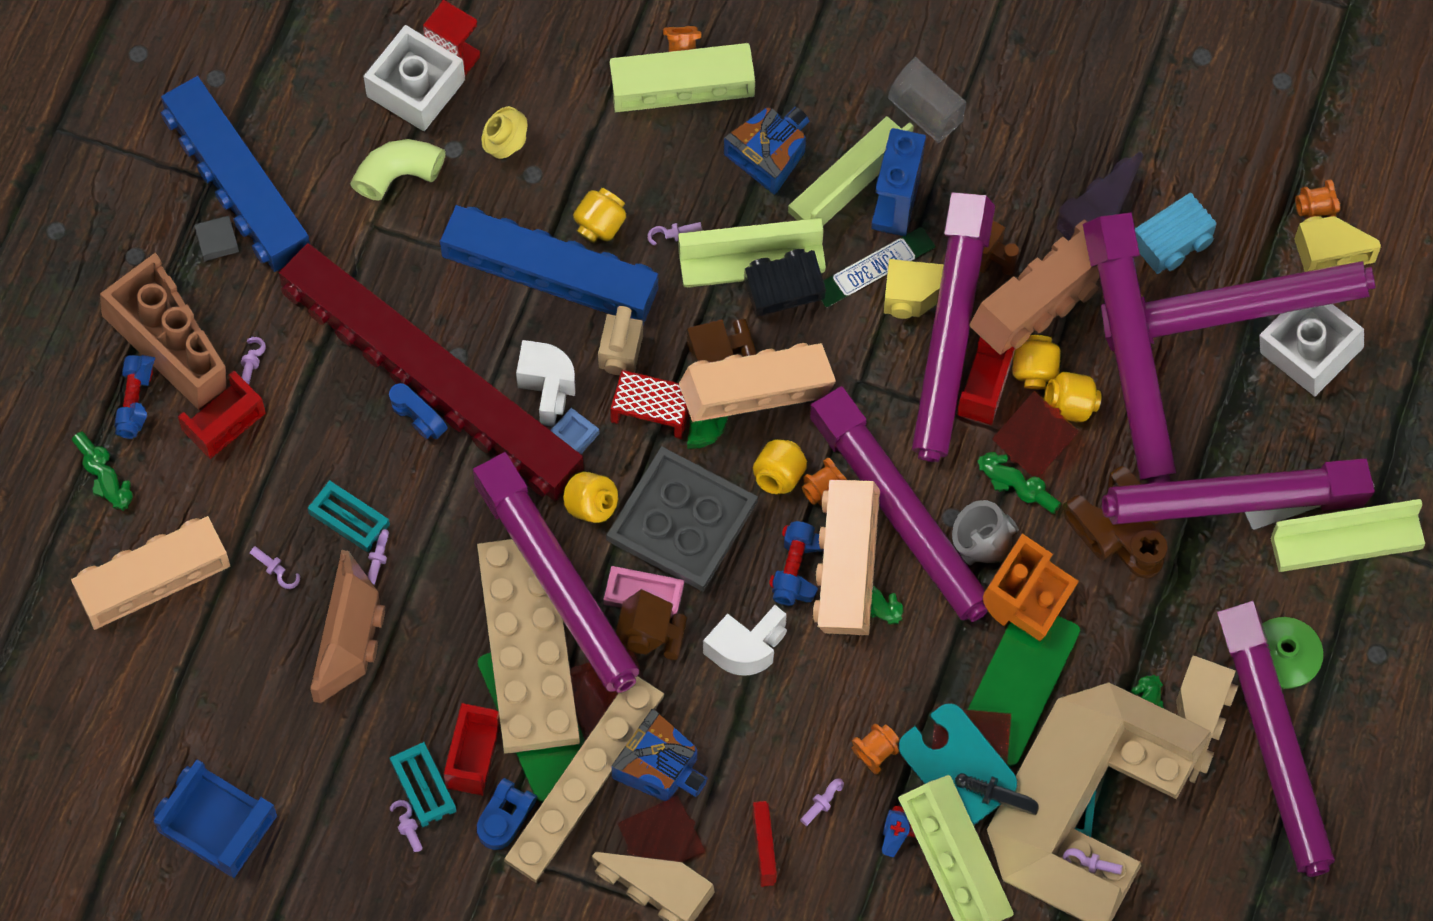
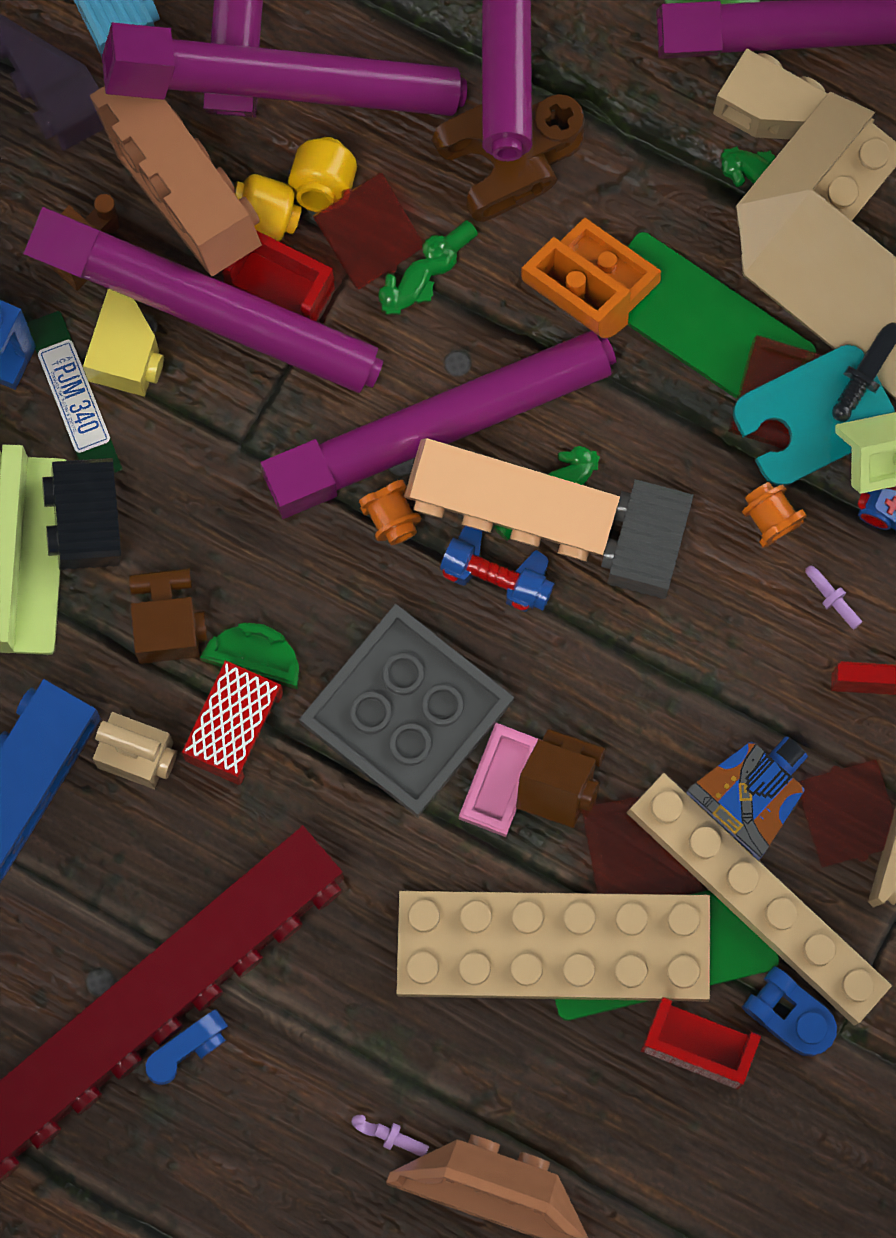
camera: 80 degrees left, 10 degrees up
(359, 506) = (352, 1136): teal tile -> none
(407, 825) = (788, 1148): lavender hand -> none
(436, 812) = (690, 1132): teal tile -> none
(509, 501) = (354, 934): magenta brick -> none
(546, 370) = (156, 851): white brick -> none
(575, 430) = (249, 837): medium blue tile -> none
(590, 497) = (359, 826): yellow head -> none
(744, 651) = (613, 657): white brick -> none
(756, 381) = (234, 574): light nougat brick -> none
(779, 466) = (355, 567): yellow head -> none
(840, 662) = (648, 539): none -> dark grey brick
(983, 533) = (498, 322): light grey helmet -> none

